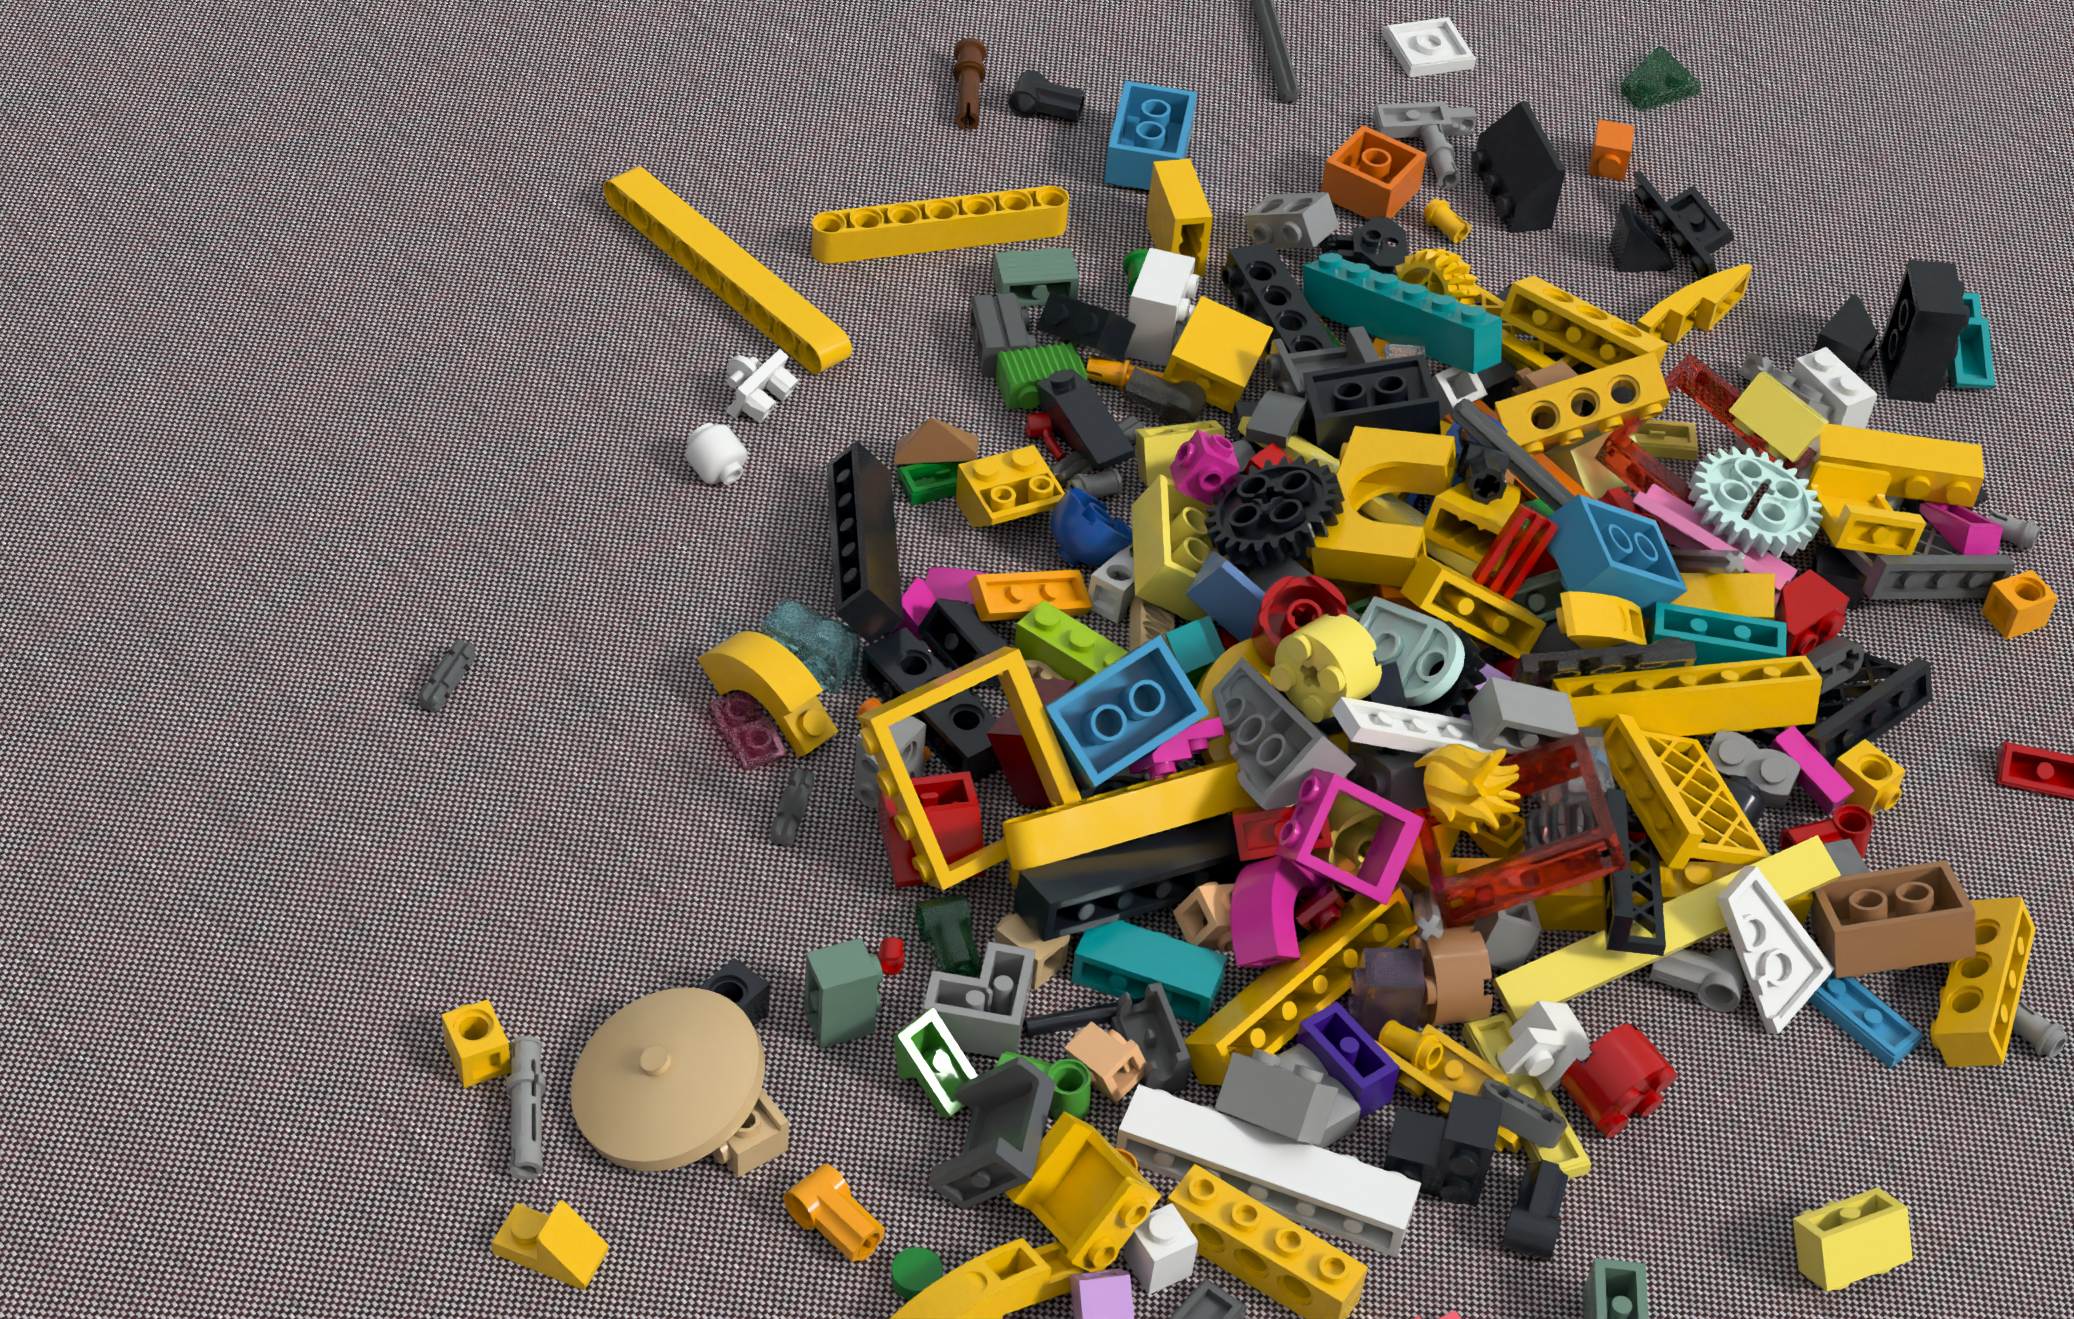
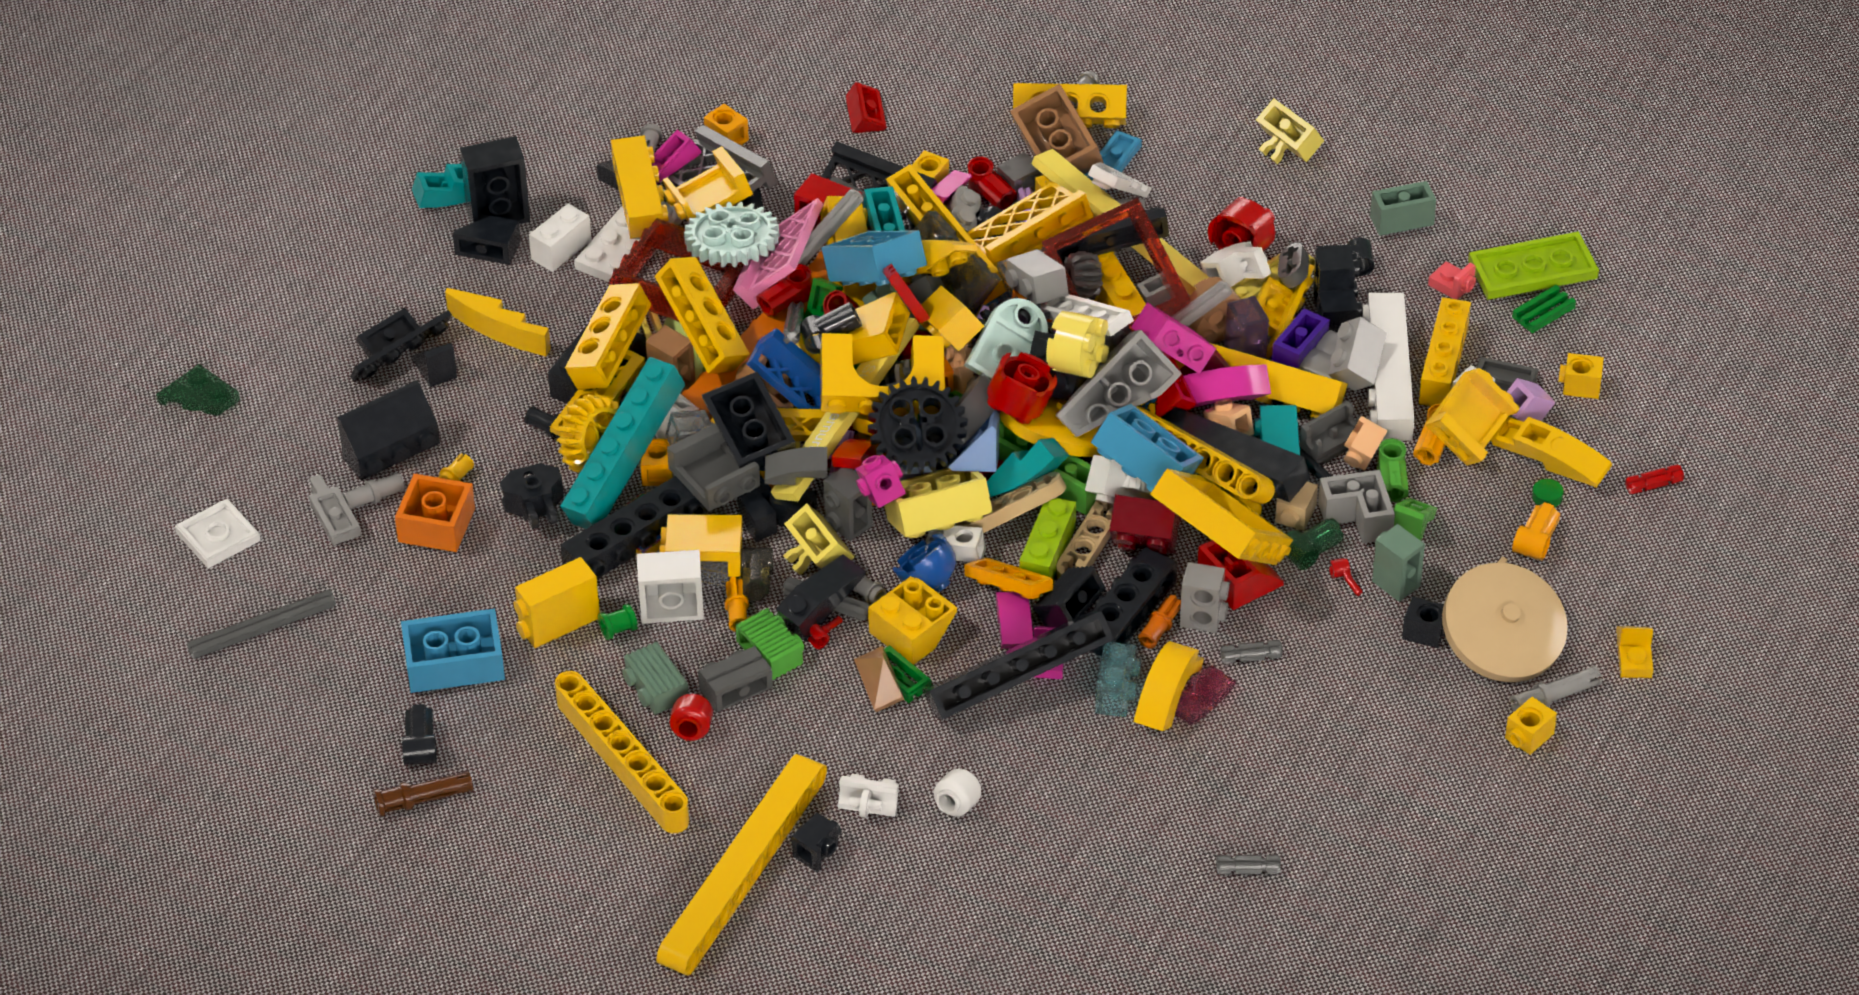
camera: 105 degrees left, 0 degrees up
(716, 325) = (815, 841): none -> black brick
(957, 283) = (691, 717): none -> red head
(1003, 1133) = (1452, 467): dark grey panel -> none
(1086, 326) = (717, 619): black brick -> none
(1292, 220) = (515, 541): light grey brick -> none
(1422, 1050) = (1275, 311): yellow pin -> none
(1467, 786) = (1116, 282): yellow hair -> none
(1611, 150) = (321, 395): orange brick -> none
(1755, 364) = (568, 260): light grey hinge -> none
(1777, 417) = (657, 223): light yellow brick -> none

